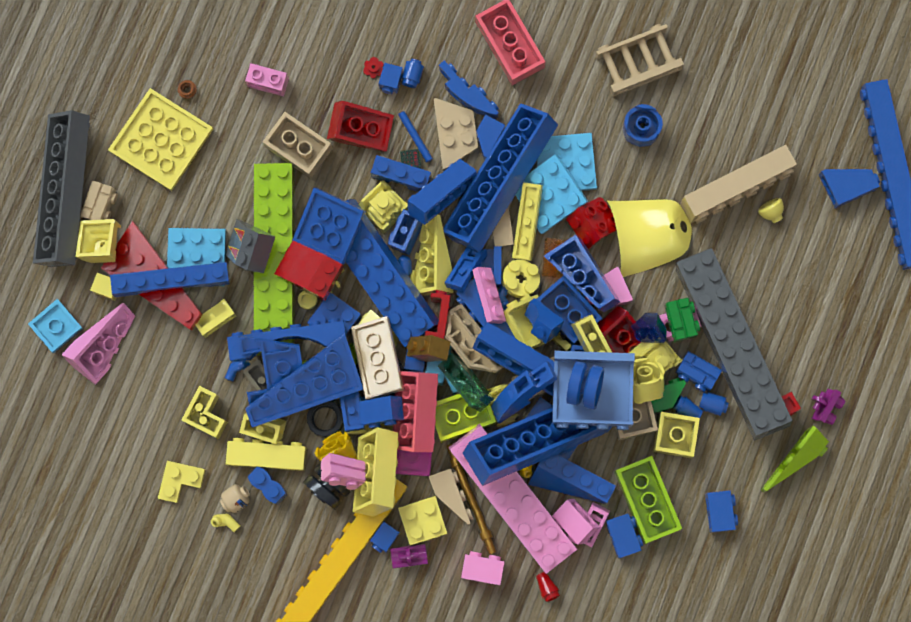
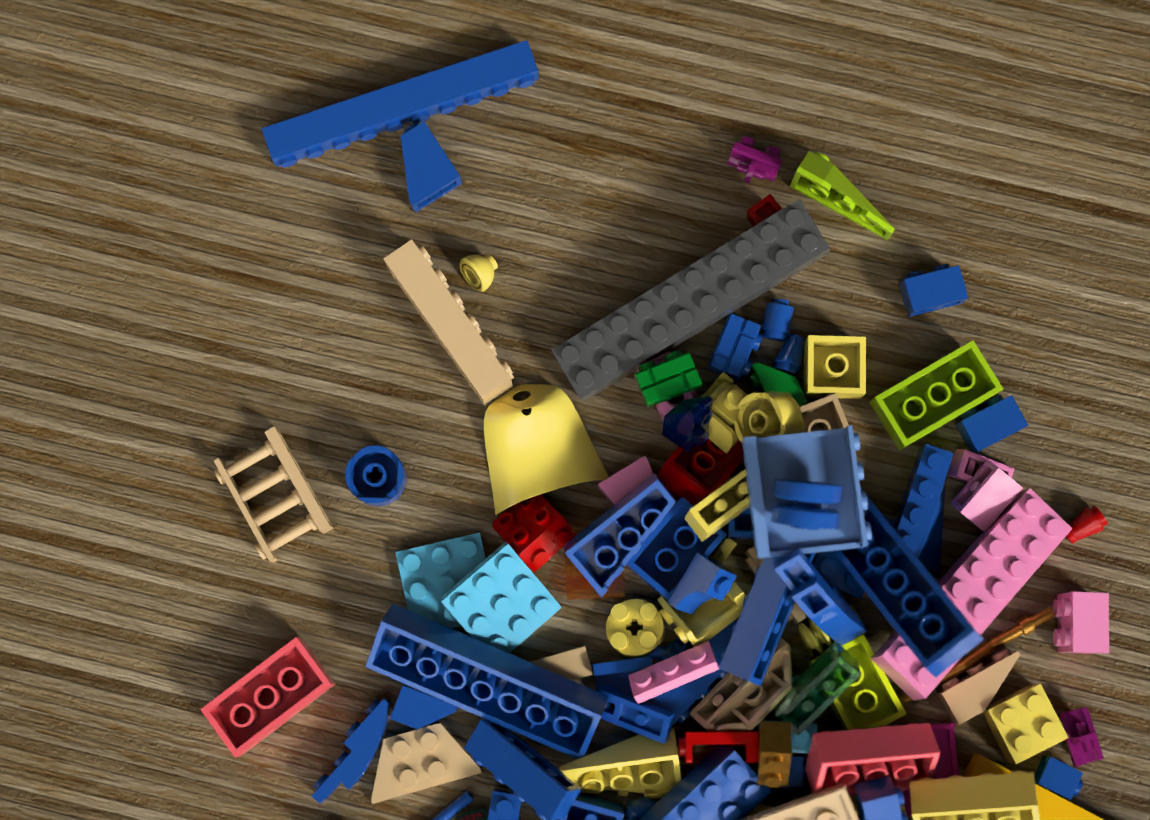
camera: 100 degrees left, 0 degrees up
(527, 221) = (547, 630): light yellow tile -> none

